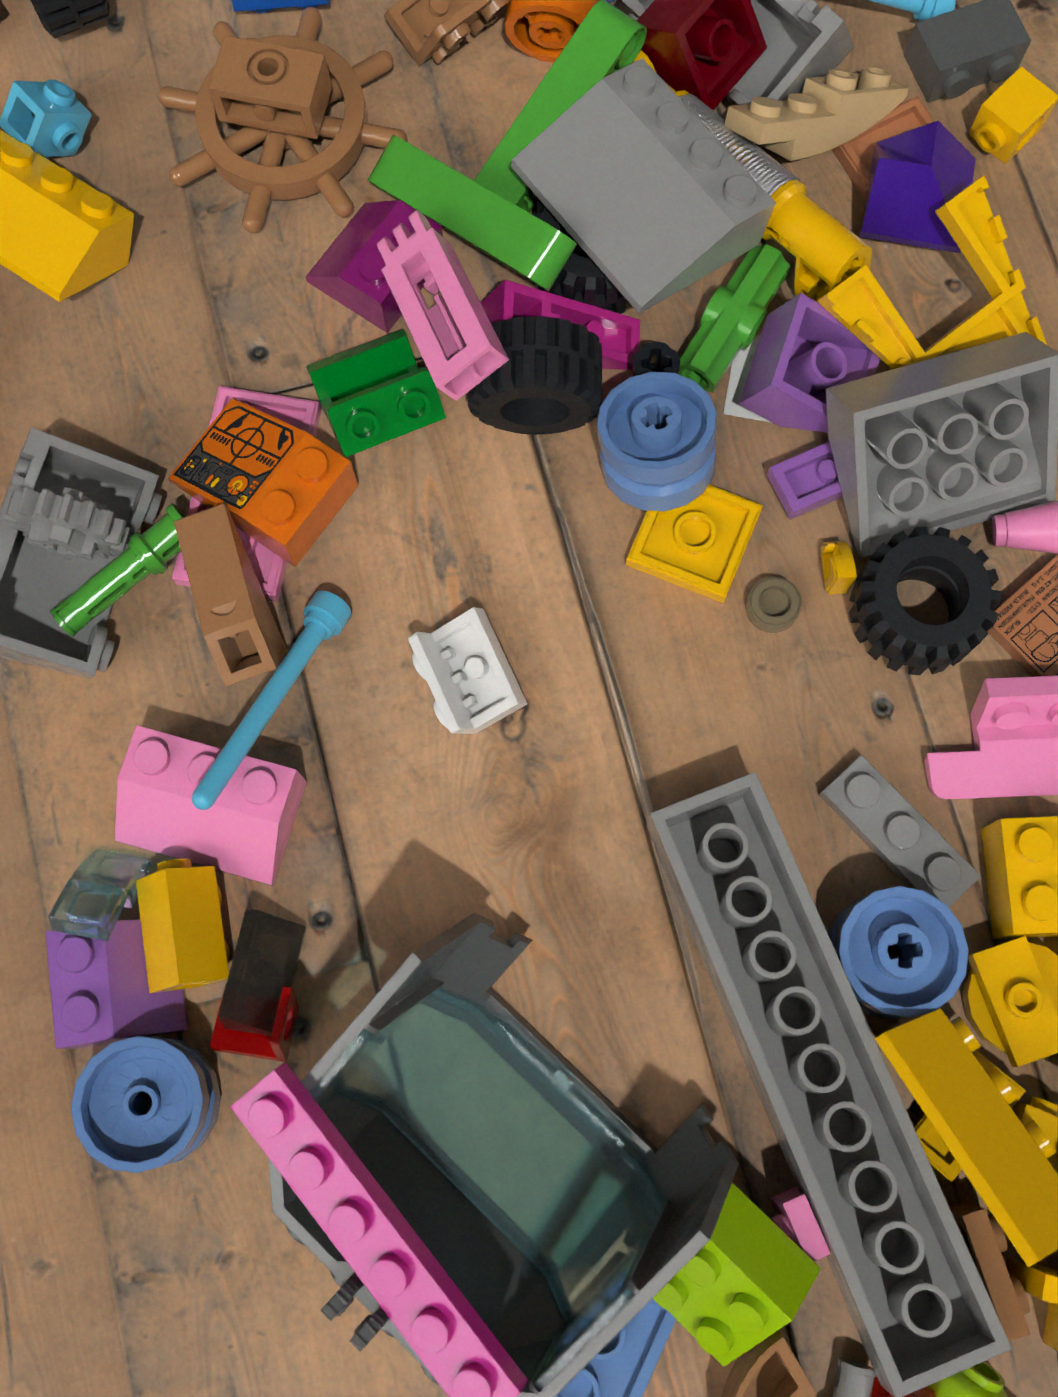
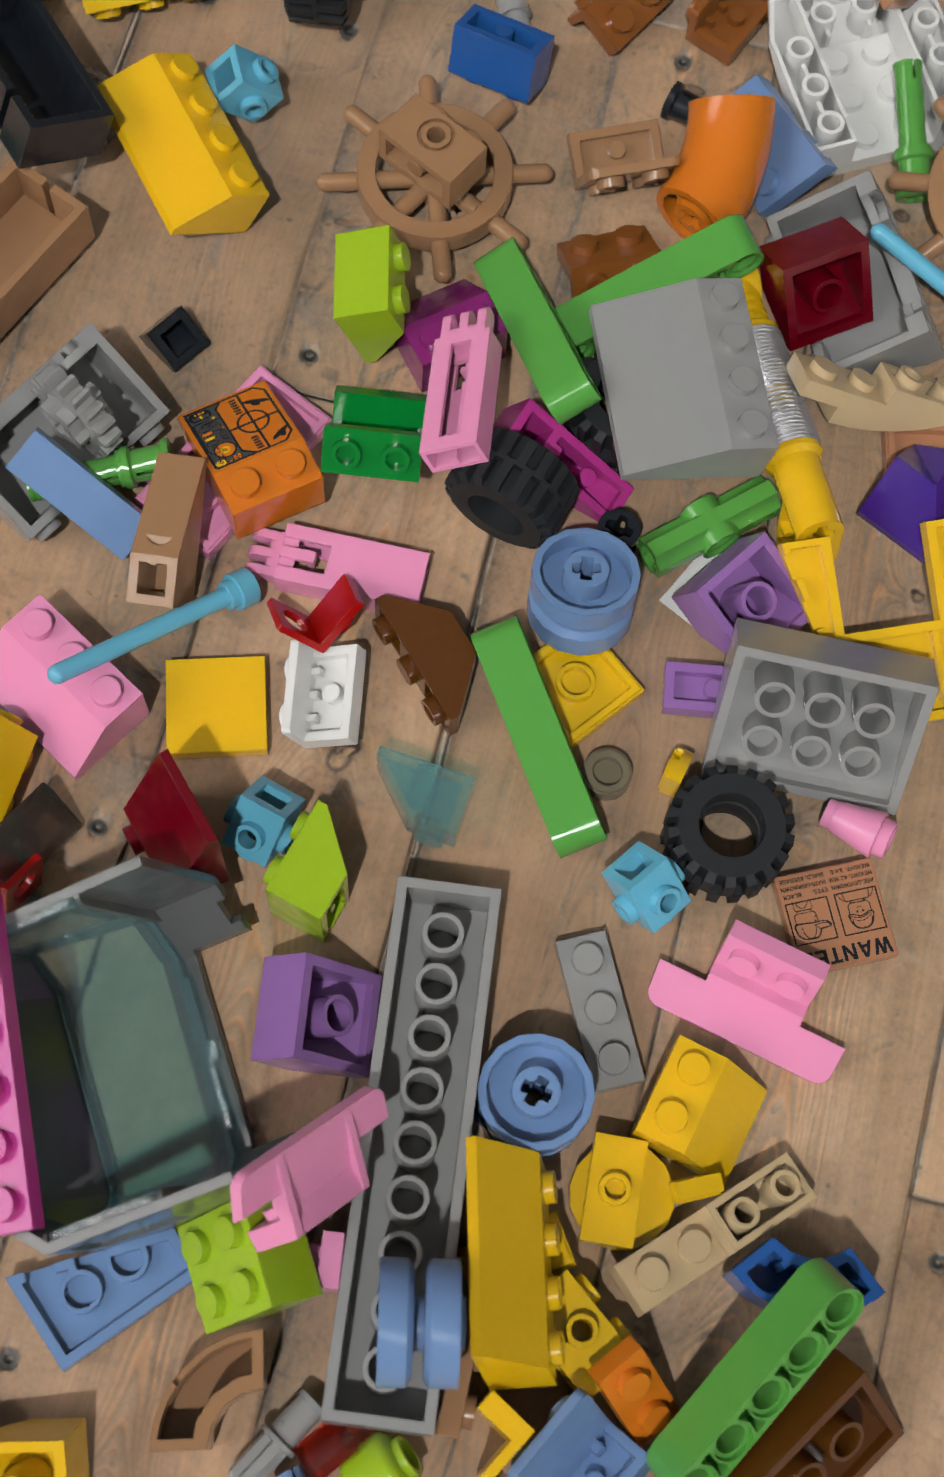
camera: 20 degrees right, 5 degrees down
(114, 604) = (77, 492): none -> medium blue tile
(120, 403) = (175, 338): none -> black slope
(289, 252) = (371, 288): none -> lime slope
(369, 741) = (216, 707): none -> yellow tile
(404, 888) = (170, 822): none -> dark red slope
(428, 600) = (326, 621): none -> red bracket
(429, 536) = (371, 564): none -> bright pink hinge
(483, 829) = (262, 821): none -> medium azure brick
(487, 113) = (599, 257): none -> dark orange bracket
(548, 580) = (431, 654): none -> reddish brown slope
(569, 857) = (311, 880): none -> lime slope
(622, 719) = (426, 796): none -> clear light blue slope
(642, 991) = (316, 1016): none -> medium lavender slope
(696, 603) = (538, 737): none -> bright green beam
(760, 1171) = (308, 1172): none -> bright pink plate
(880, 693) = (646, 887): none -> medium azure brick
(953, 1259) = (420, 1323): none -> medium blue wheel

